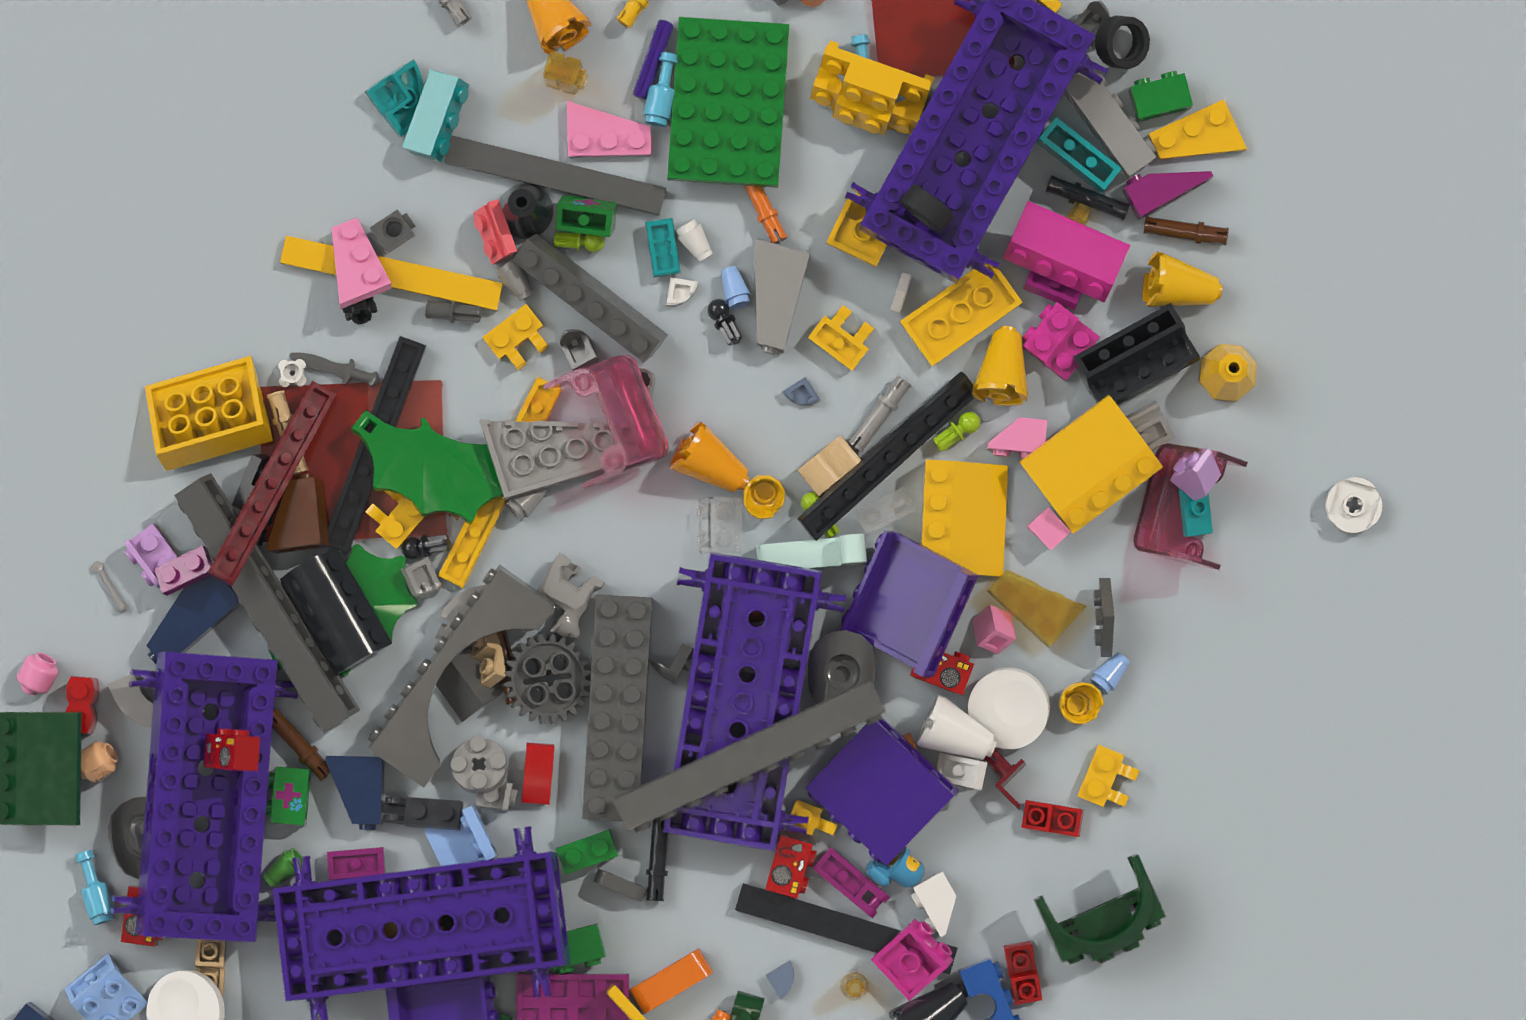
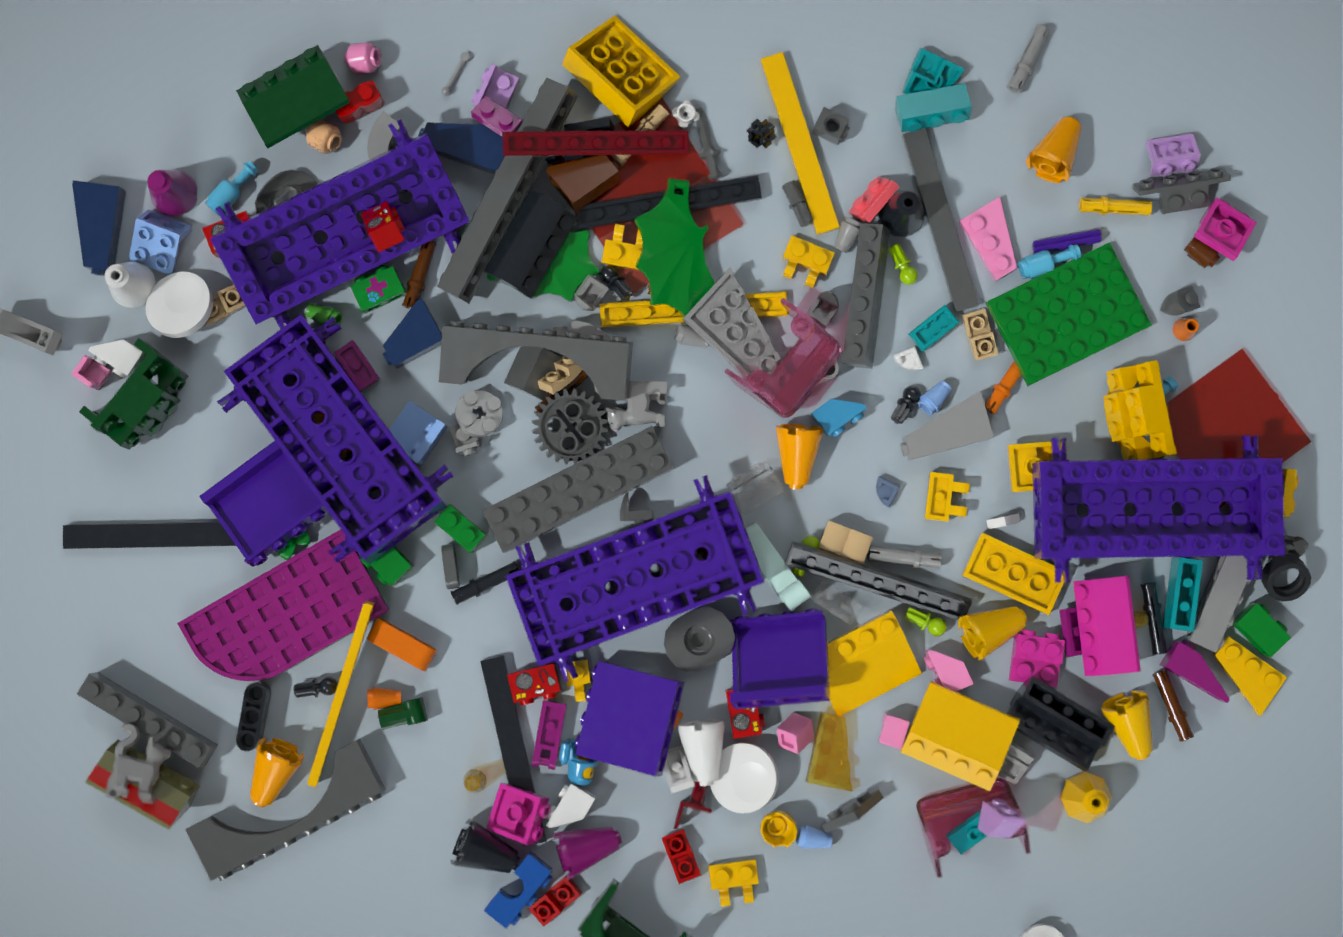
camera: 60 degrees right, 0 degrees up
(62, 952) = (172, 191): none -> magenta cone
(357, 265) = (790, 113): bright pink wing -> none
(426, 813) = (422, 395): black hinge -> none
(538, 773) = (497, 459): red slope -> none
(564, 73) = (1019, 182): clear yellow brick -> none
(586, 216) = (924, 258): green brick -> none
(693, 399) = (837, 413): none -> dark azure slope
(694, 239) = (953, 347): white cone -> none
(696, 204) = (979, 334): none -> tan slope
(750, 755) = (598, 607): dark grey brick -> none
(763, 496) = (794, 507): yellow hair -> none
(782, 979) = (449, 724): sand blue tile -> none
(927, 209) = (1081, 504): black tyre -> none
(987, 911) = (585, 847): none -> magenta cone

